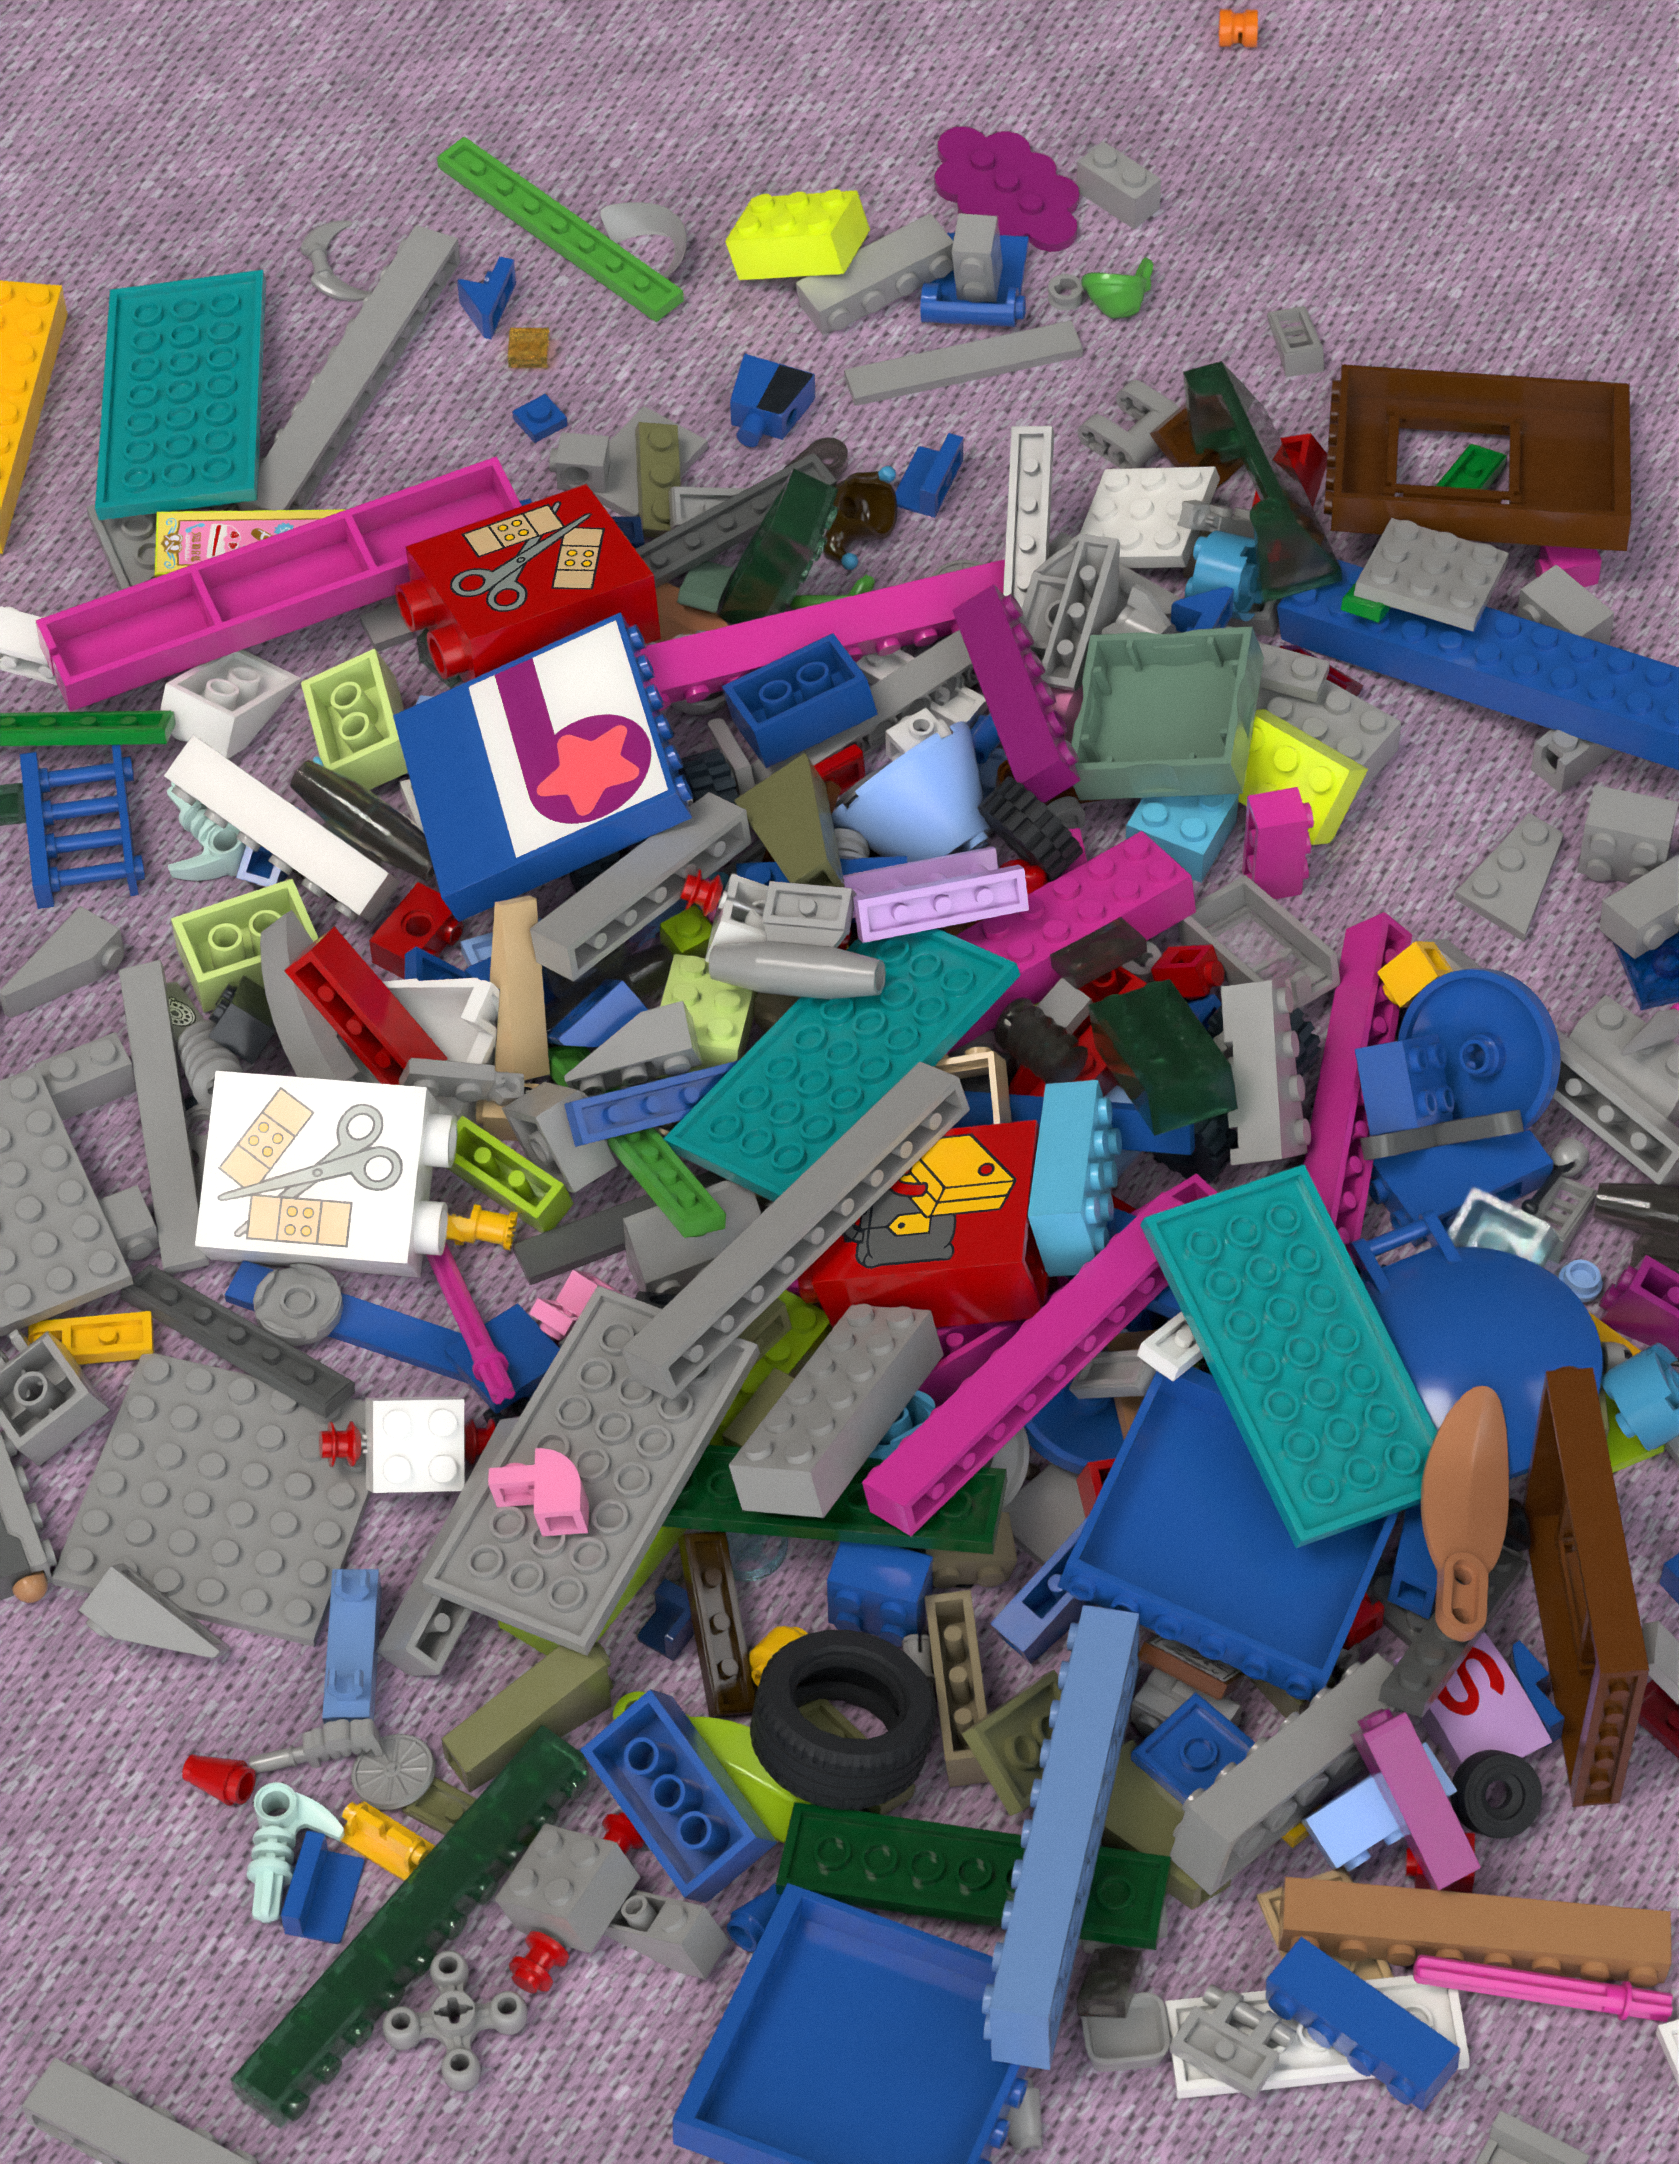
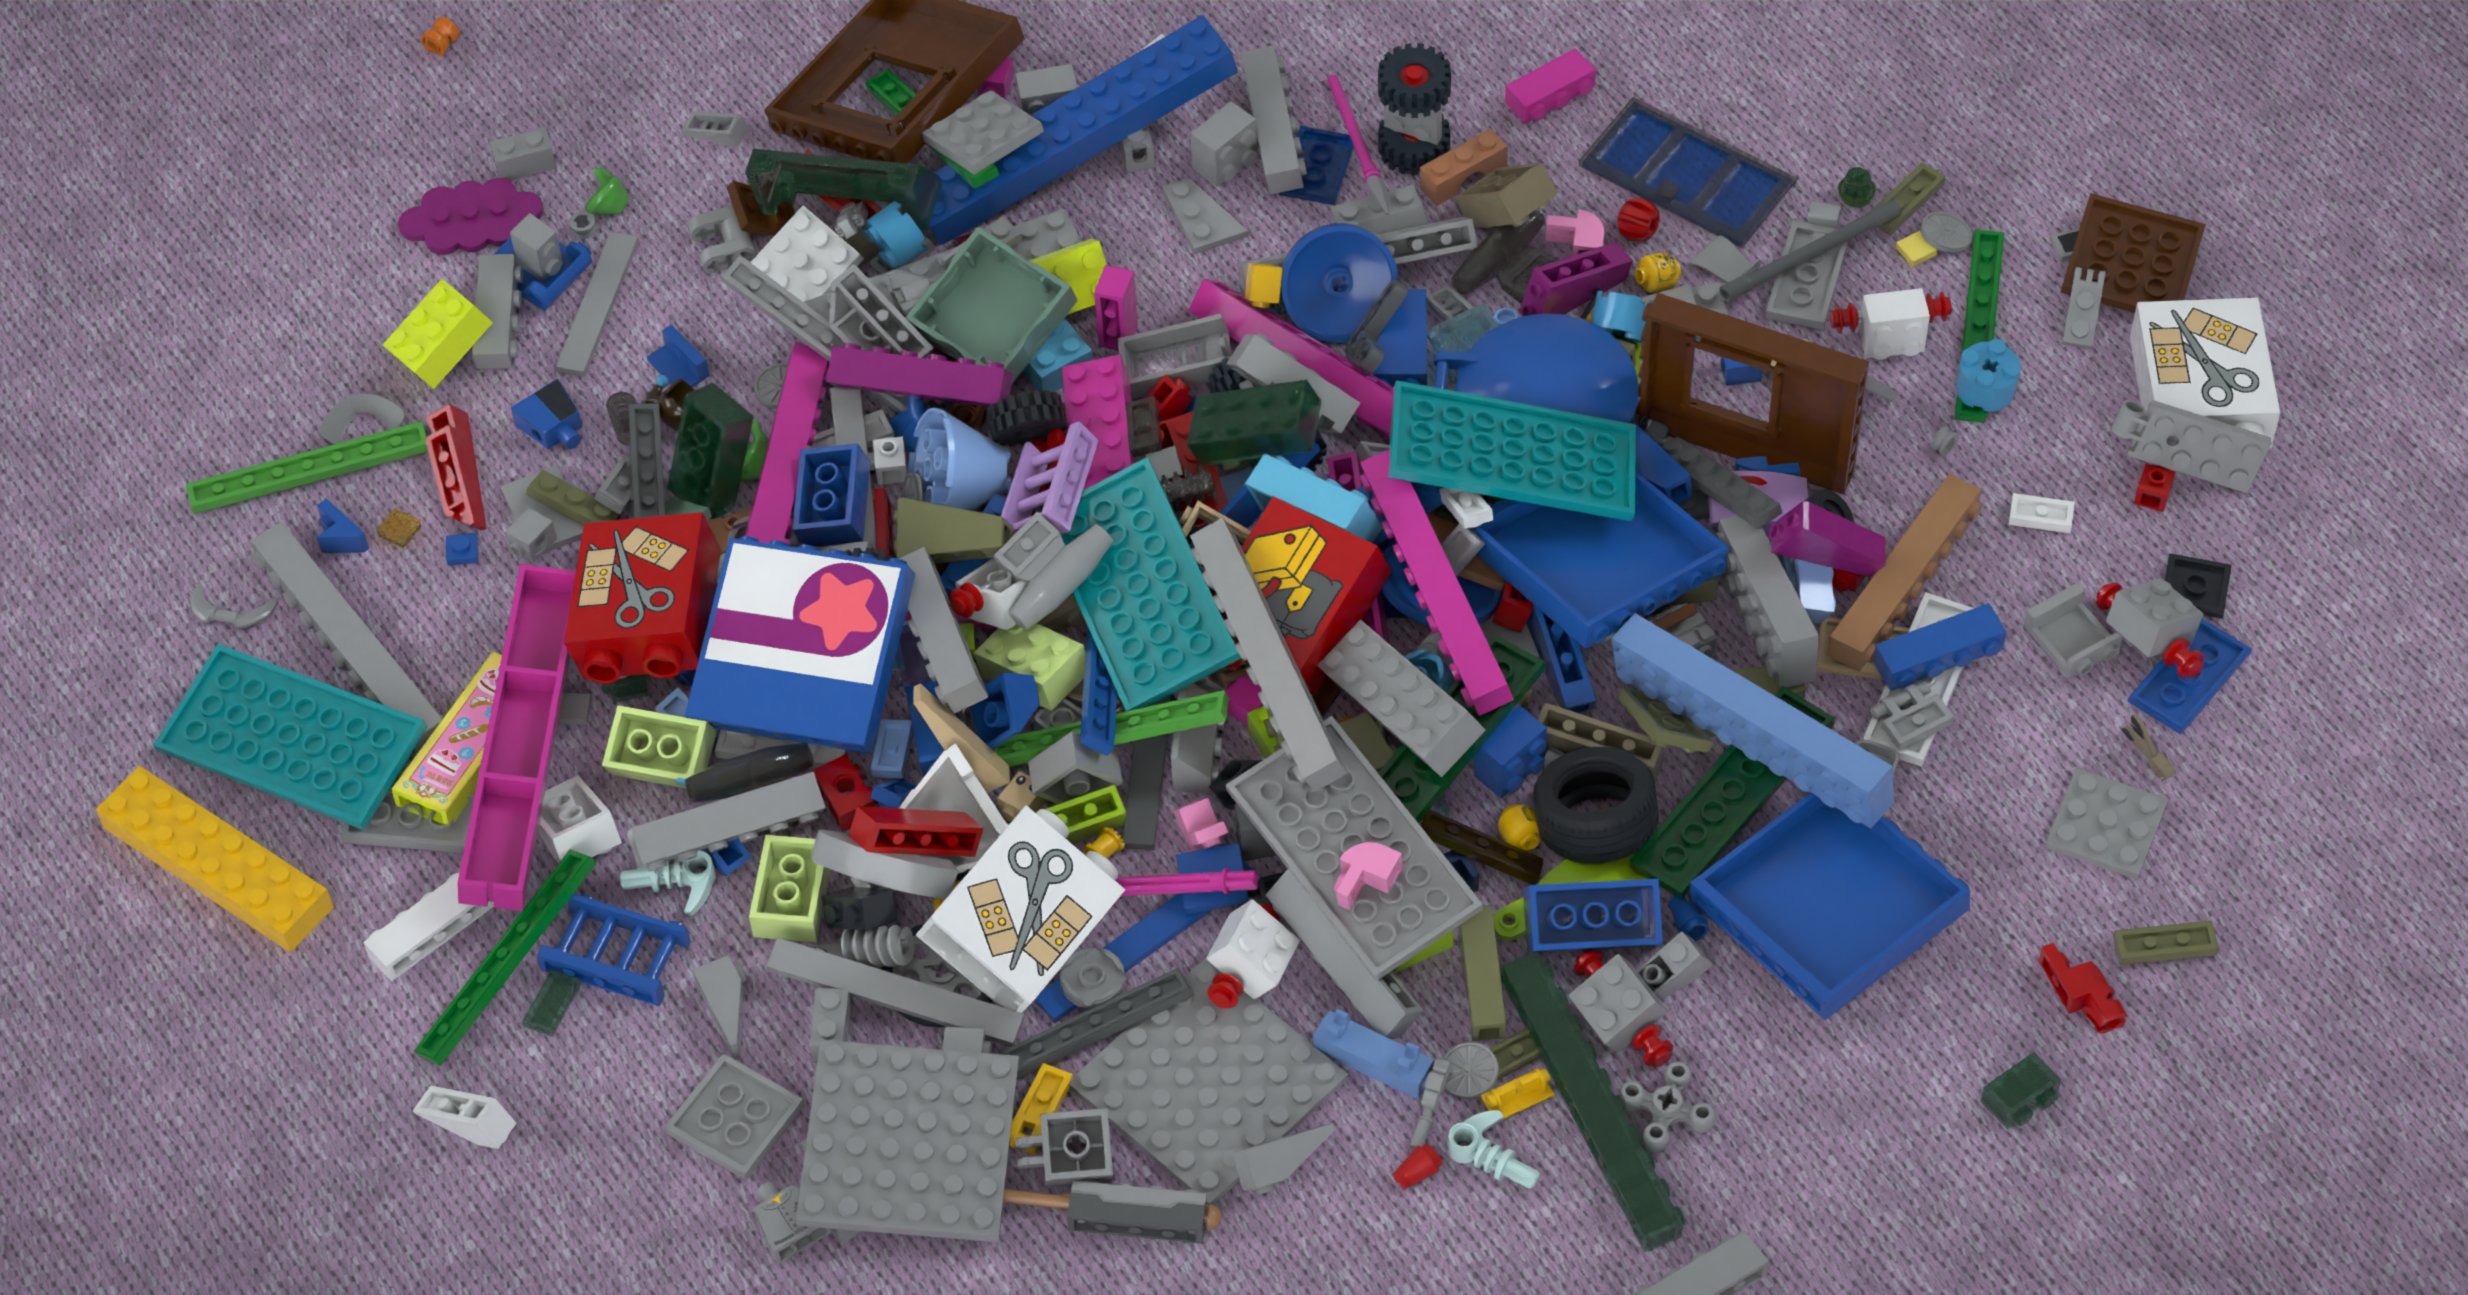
camera: 60 degrees left, 0 degrees up
(321, 1891) = (1531, 1144): blue panel -> none
(463, 1080) = (1002, 802): light grey hinge -> none
(644, 1048) = (1056, 682): light grey slope -> none
(646, 353) = (455, 465): none -> red wedge
(1191, 1748) = (1724, 639): blue tile -> none
(1203, 610) = (927, 259): blue slope -> none
(1404, 1084) = (1327, 324): blue brick -> none
(1466, 1508) = (1658, 432): nougat plant -> none
(1543, 1988) = (1982, 528): dark pink axle -> none
(1563, 1156) = (1421, 281): hinge -> none

